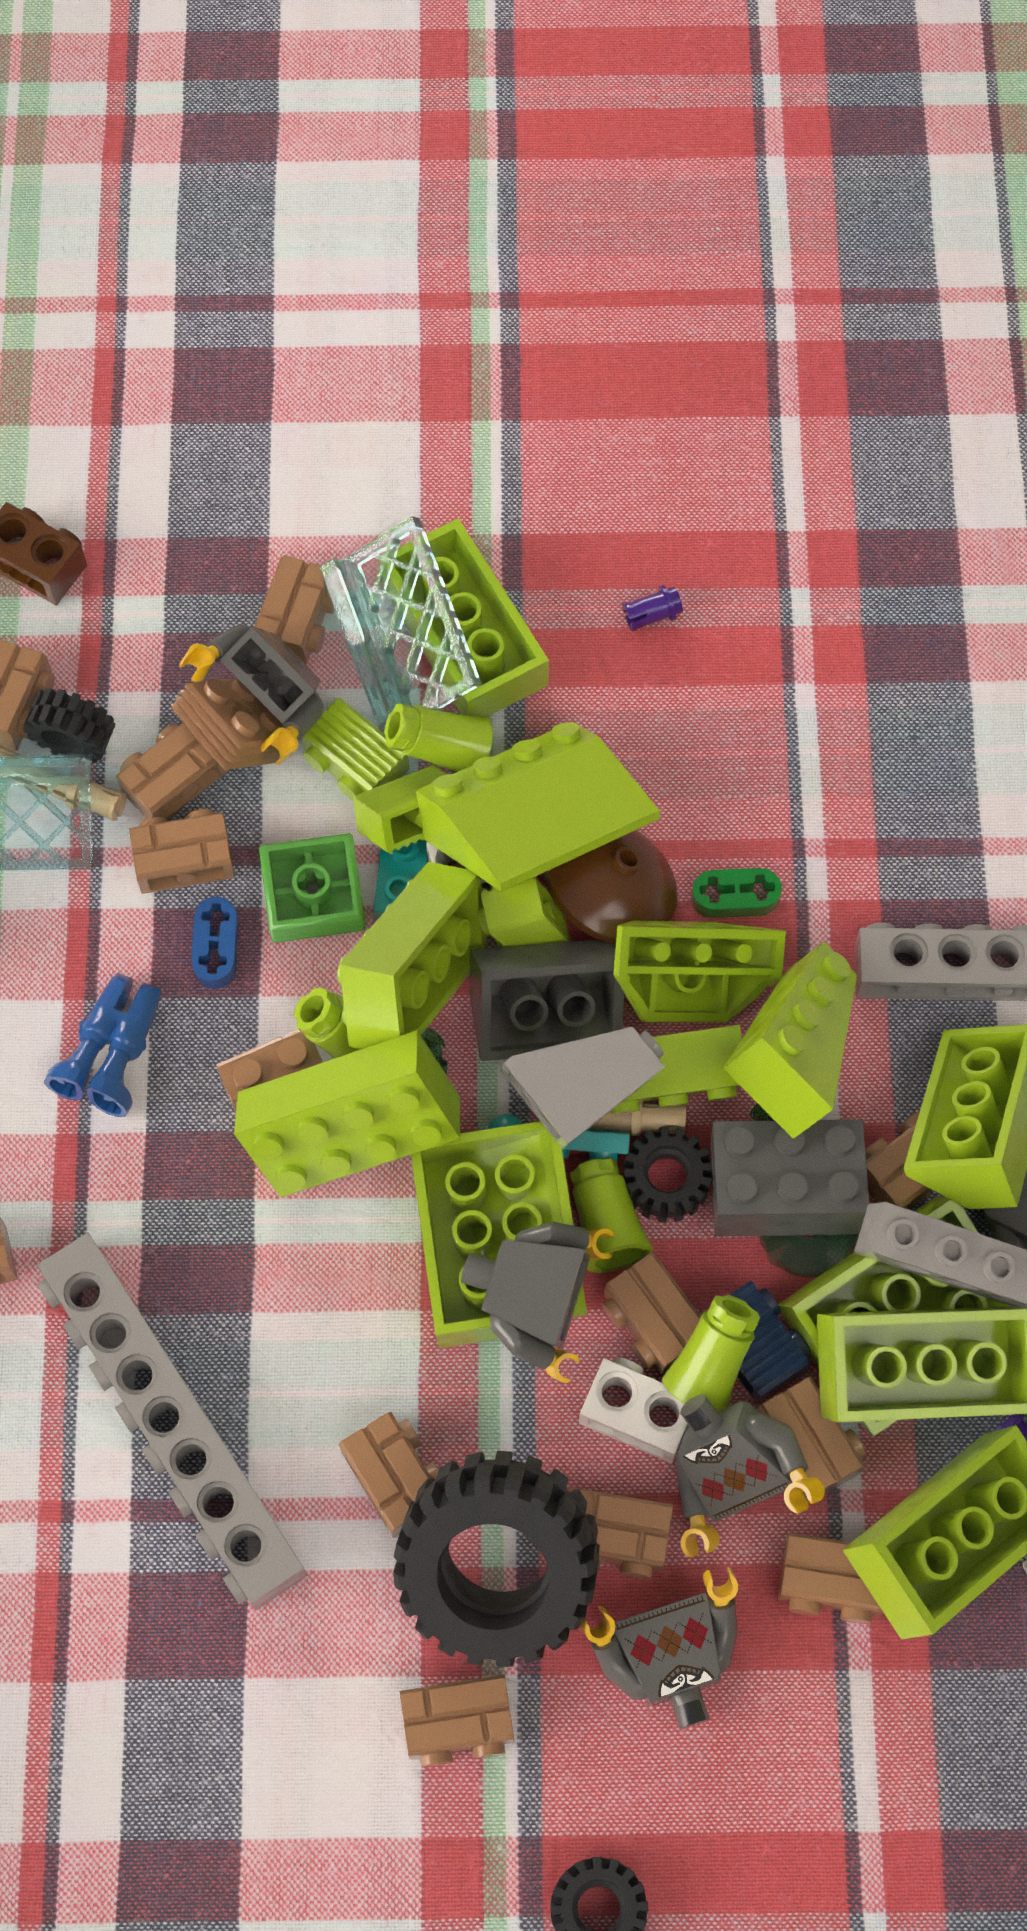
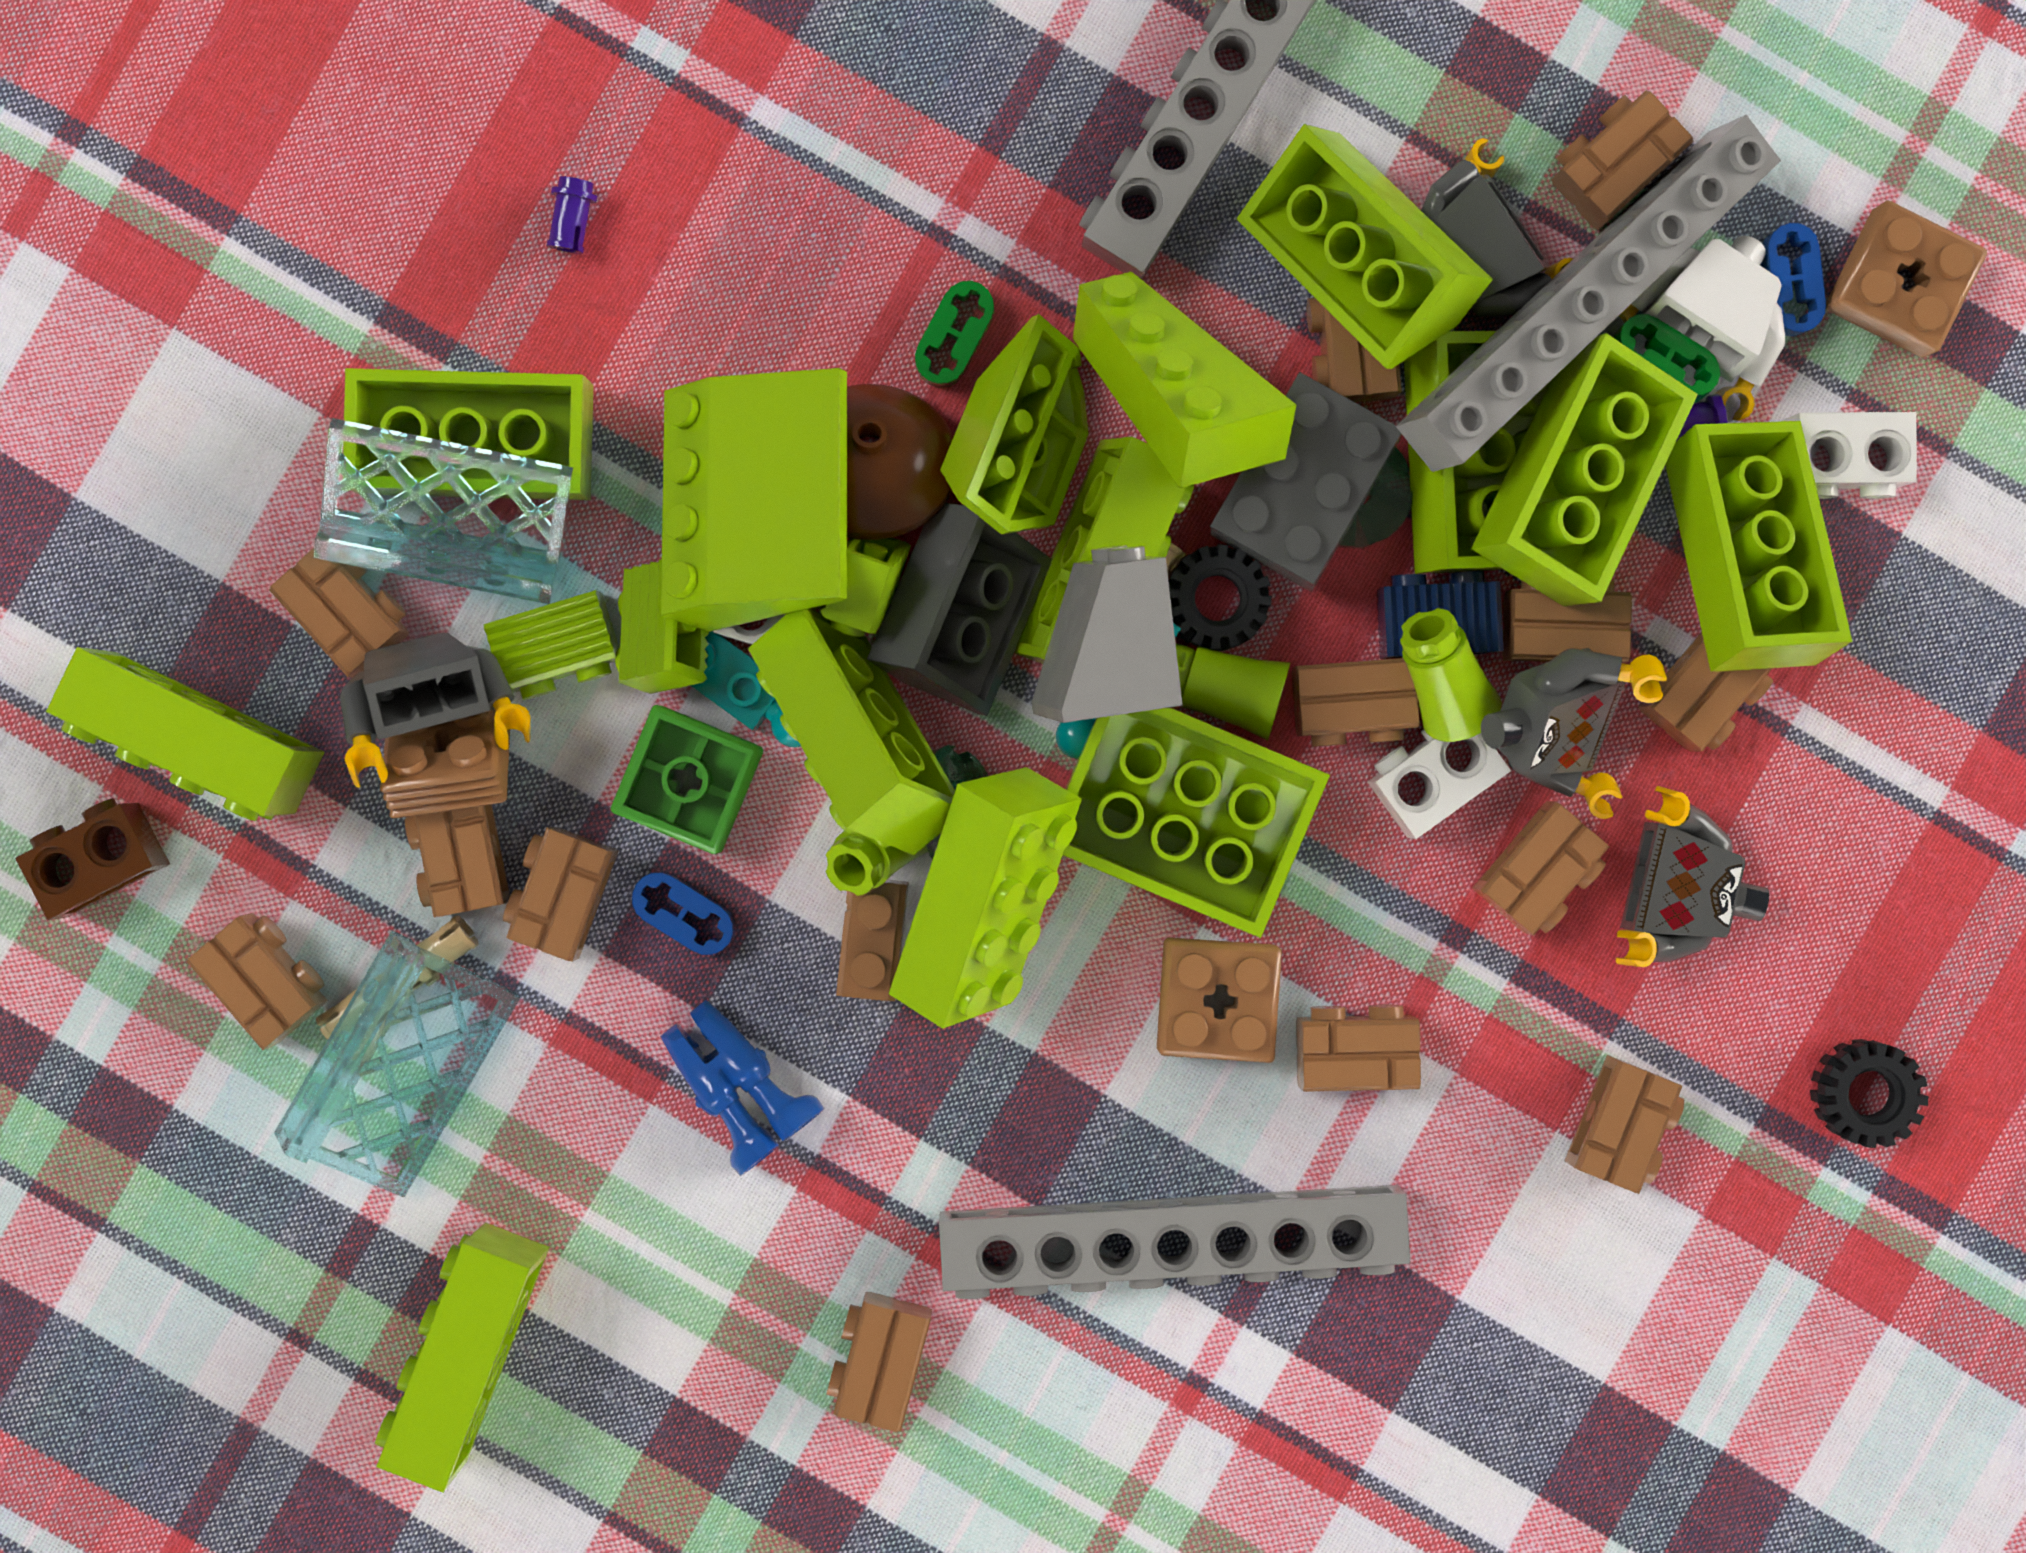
camera: 55 degrees left, 20 degrees up
(68, 724) = (342, 936): black tyre -> none
(150, 558) = (185, 733): none -> lime brick
(359, 1378) = (1245, 1028): none -> medium nougat brick
(438, 736) = (600, 544): lime plant -> none
(485, 1620) = (1563, 1042): black tyre -> none
(536, 1289) = (1284, 813): dark grey torso -> none

